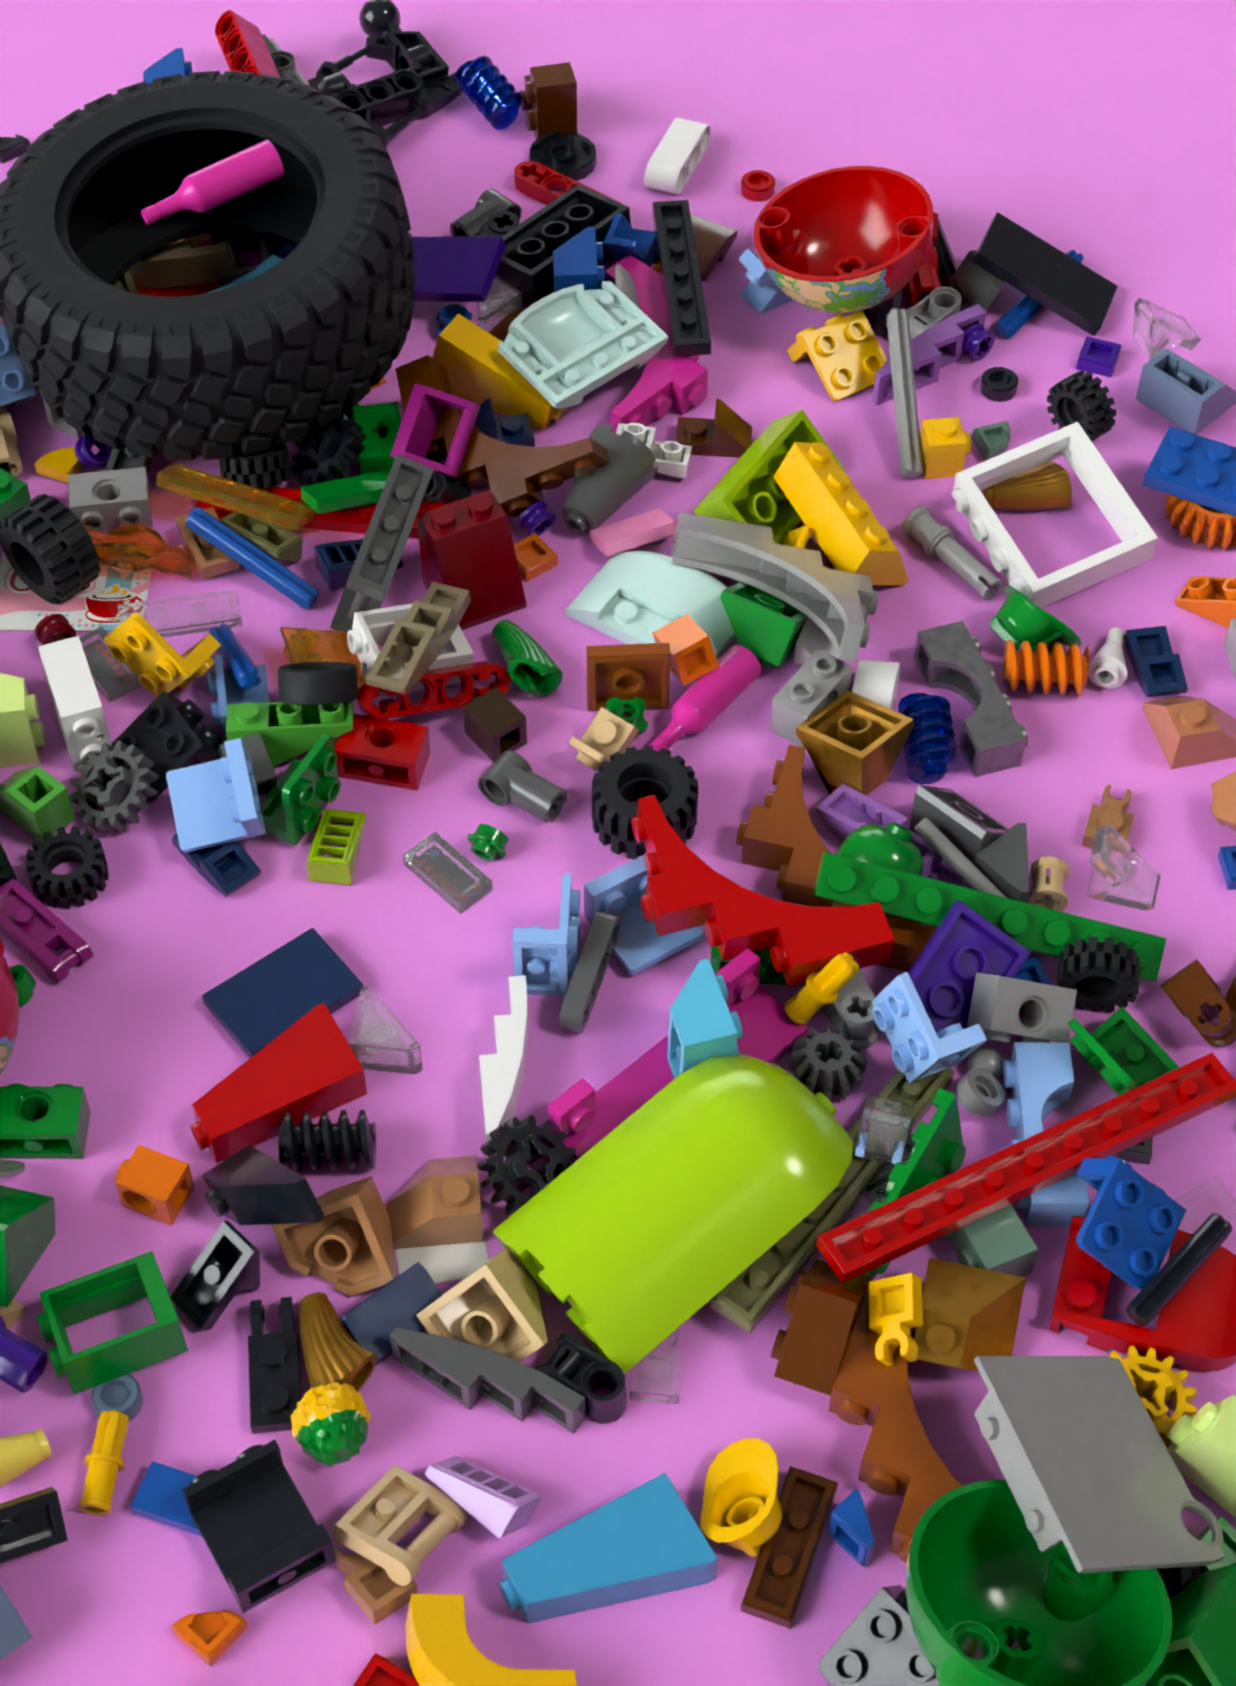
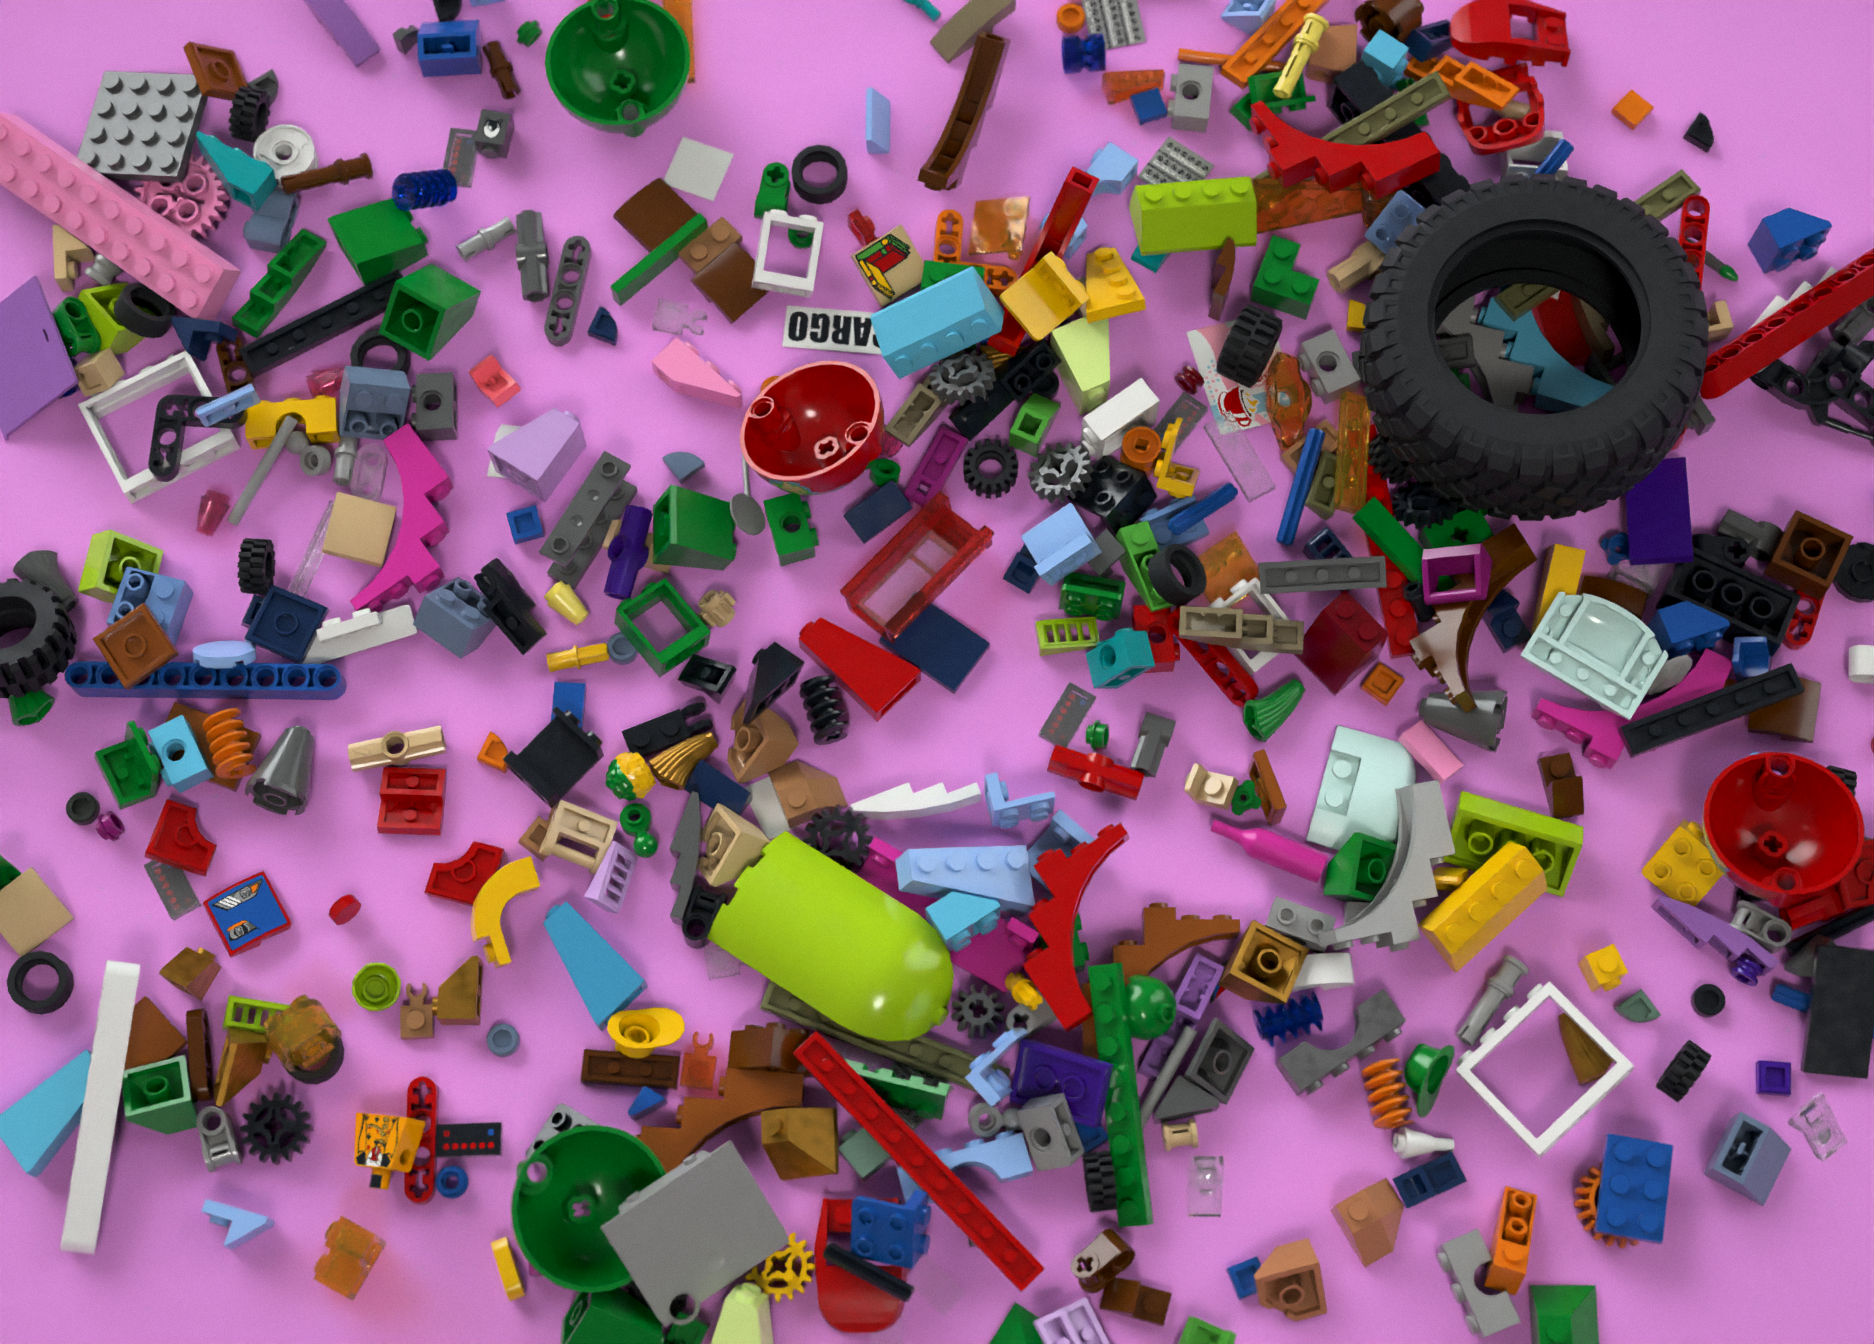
camera: 75 degrees right, 20 degrees up
(66, 1008) = (878, 511): none -> dark blue slope
(114, 1240) = (716, 608): none -> tan gear
(124, 693) = (1141, 449): none -> orange wheel
(154, 1184) = (765, 615): orange brick -> none
(177, 981) = (914, 568): none -> clear red piece
(221, 182) = (1549, 335): dark pink piece -> none
(381, 1039) = (914, 713): clear slope -> none
(411, 756) = (1120, 659): none -> teal brick
(443, 1436) = (645, 844): none -> green plate
(494, 724) = (1203, 707): dark brown brick -> none
(534, 166) = (1808, 555): none -> reddish brown brick
(537, 518) = (1416, 677): dark purple bush -> none
(538, 855) = (1095, 772): none -> red piece
(589, 971) = (1004, 834): dark grey beam -> none
(637, 1011) = (984, 872): none -> light blue wedge
(638, 776) = (1169, 808): black tyre -> none
(670, 456) = (1519, 742): white slope -> none
(689, 649) = (1303, 821): orange brick -> none
(814, 1441) = (699, 1068): none -> clear orange plate
(883, 1129) = (932, 1057): clear slope -> none
(893, 1311) = (782, 1094): yellow plate -> none
(904, 393) = (1648, 922): light grey axle -> none
(1109, 813) = (1254, 1171): medium nougat plate -> none
(1122, 1052) = (1035, 1210): green bracket -> none

